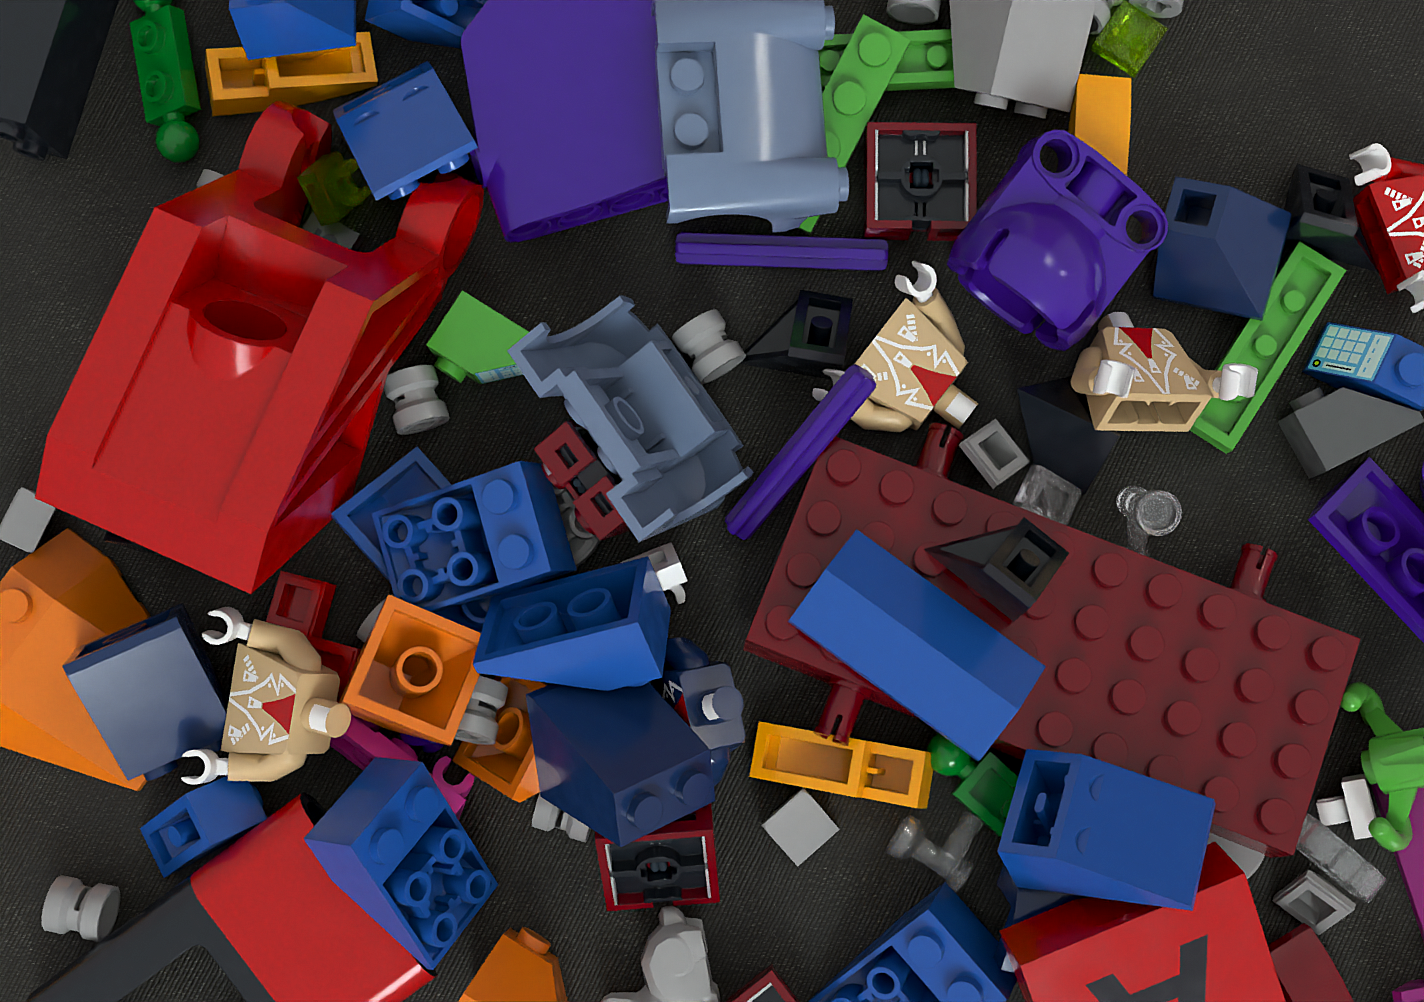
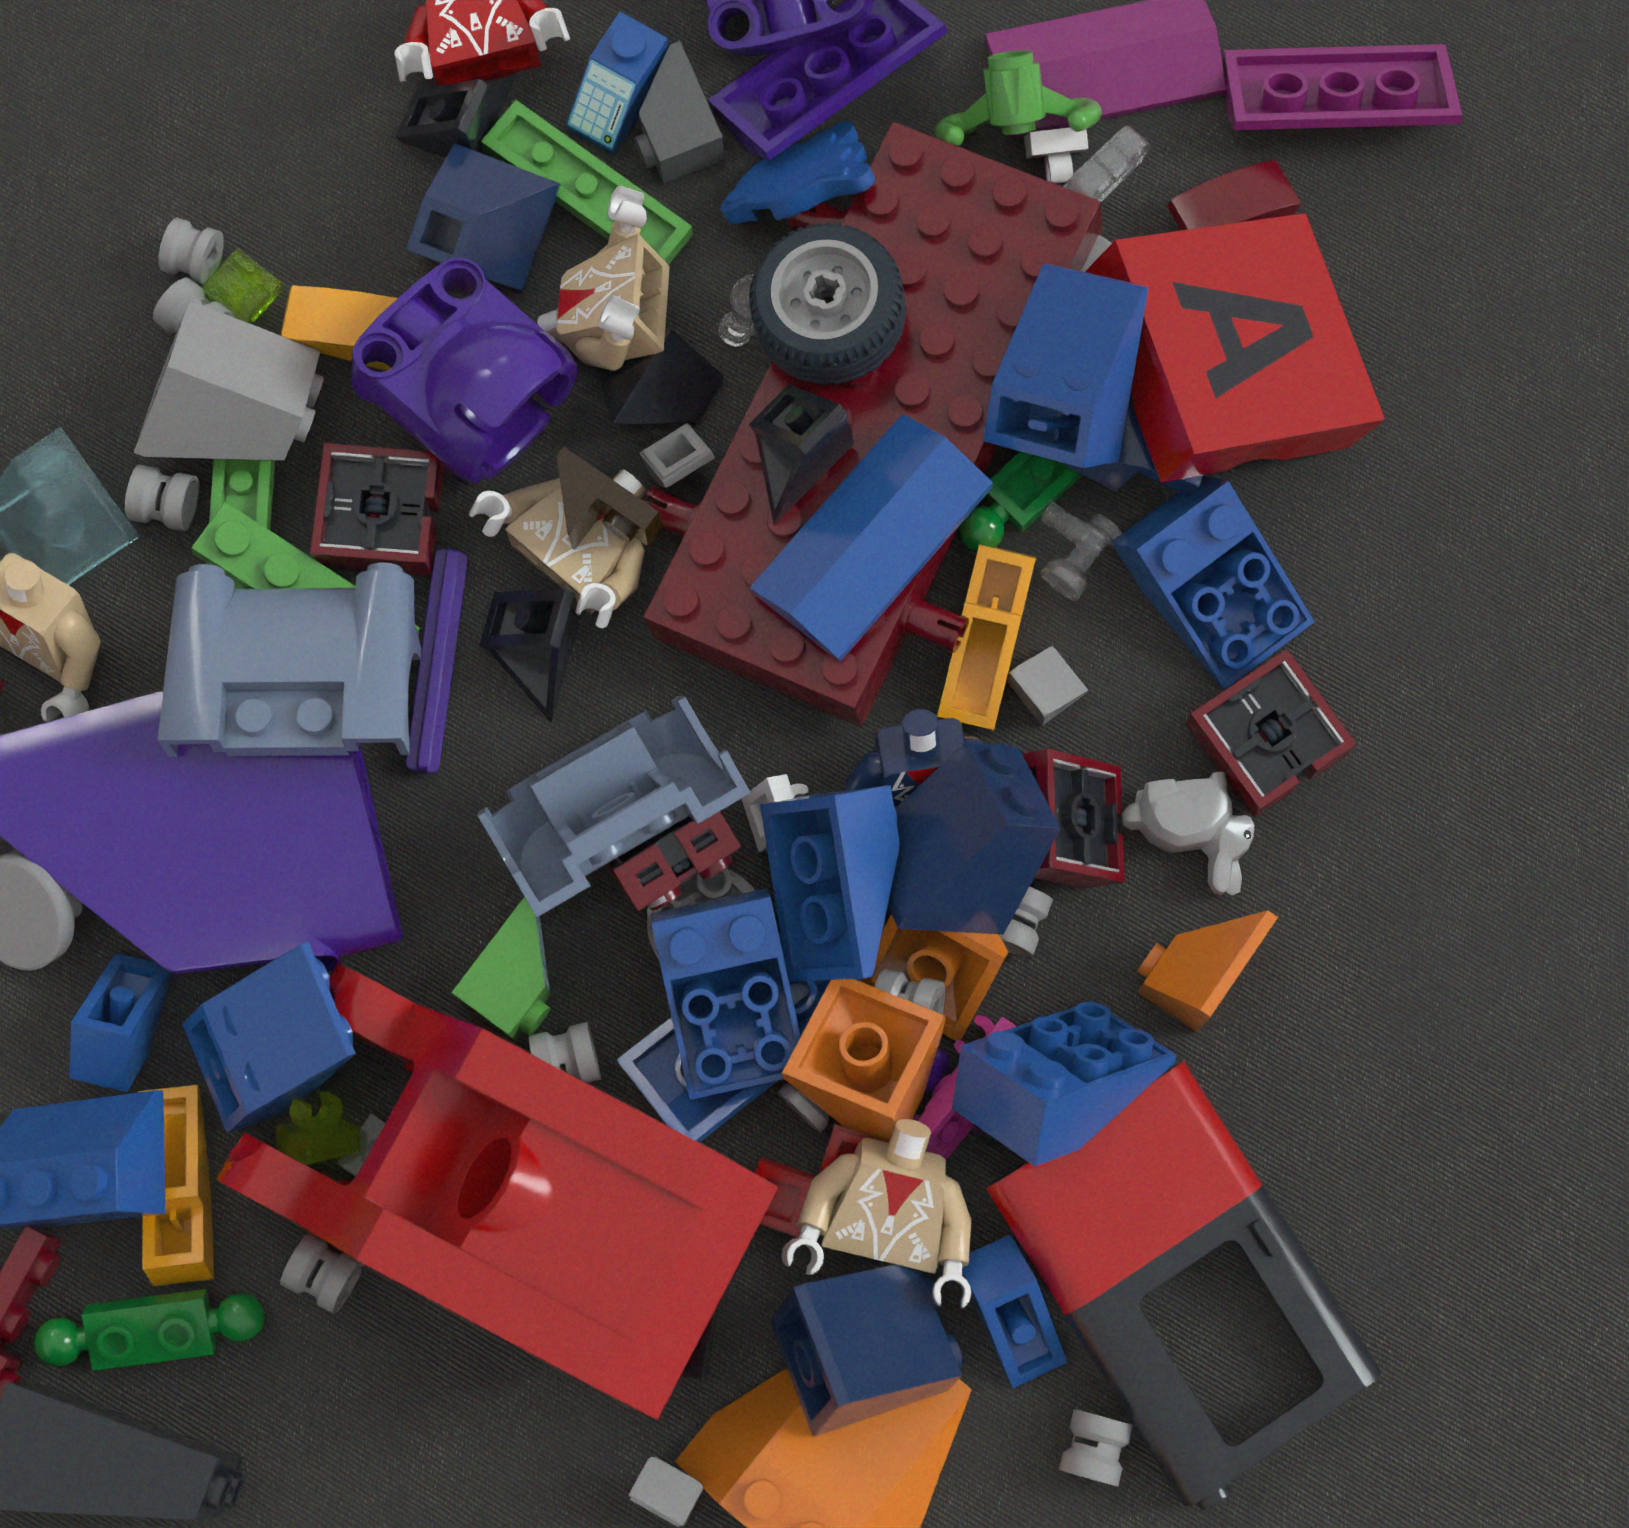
camera: 90 degrees left, 5 degrees down
(705, 341) = (535, 740): light grey wheel -> none
(800, 451) = (662, 645): dark purple axle -> none
(937, 367) = (591, 494): none -> dark brown slope
(1047, 495) = (722, 410): clear tile -> none
(1182, 560) = (827, 303): none -> wheel
(1294, 554) = (802, 176): none -> blue tile
(1314, 901) = (1146, 195): light grey slope -> none

